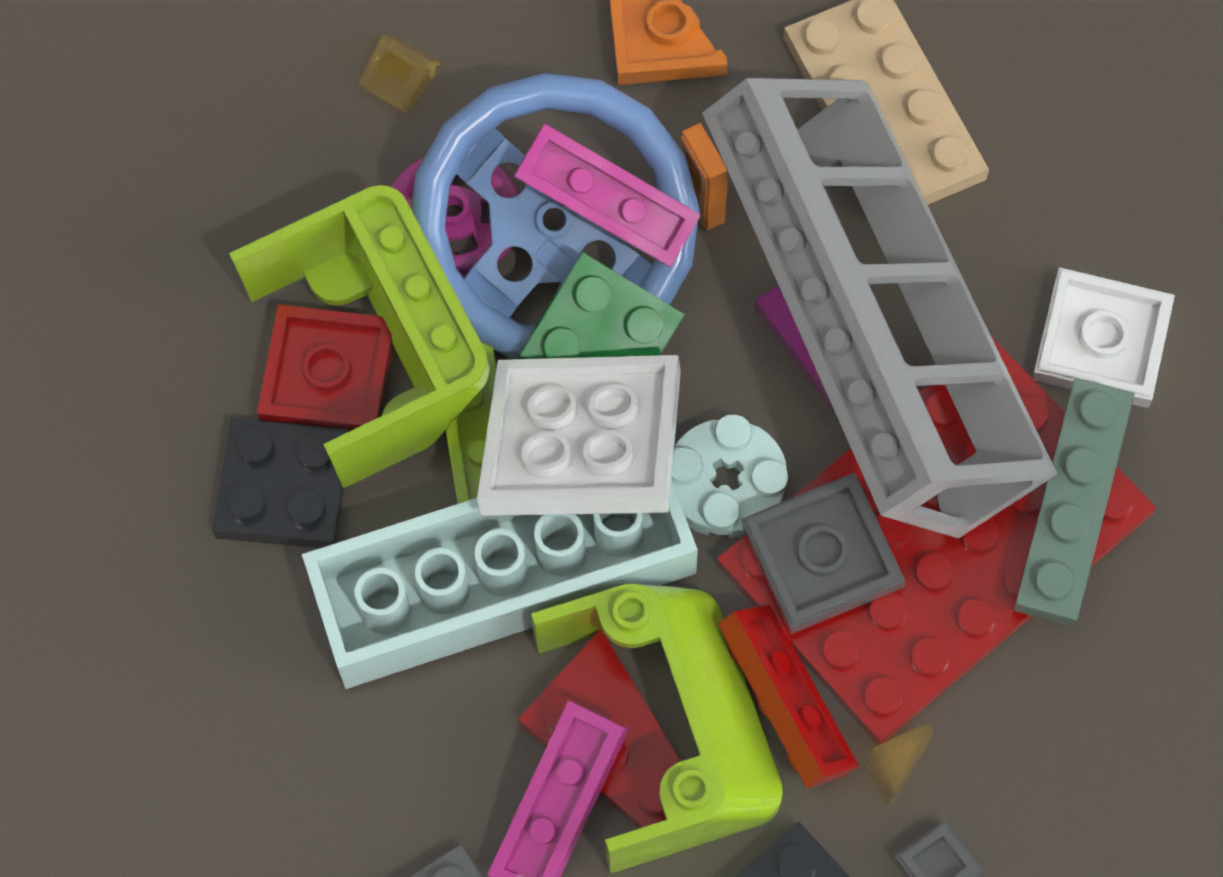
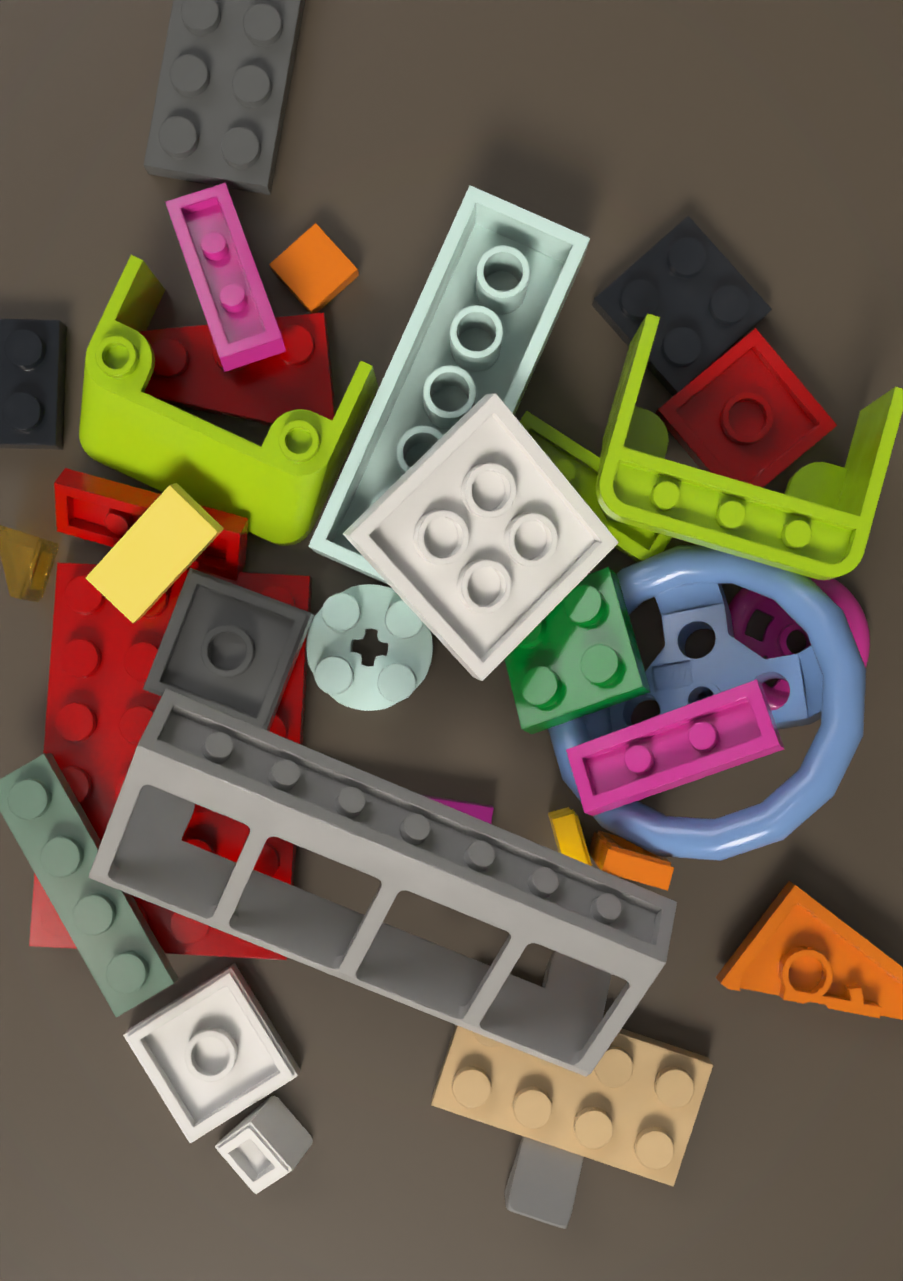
camera: 135 degrees right, 20 degrees up
(491, 759) = (314, 269): none -> orange tile
(727, 233) = (569, 834): none -> yellow tile
(804, 656) = (154, 552): none -> light yellow tile
(966, 63) = (543, 1182): none -> light grey slope
(1127, 250) = (265, 1145): none -> white slope

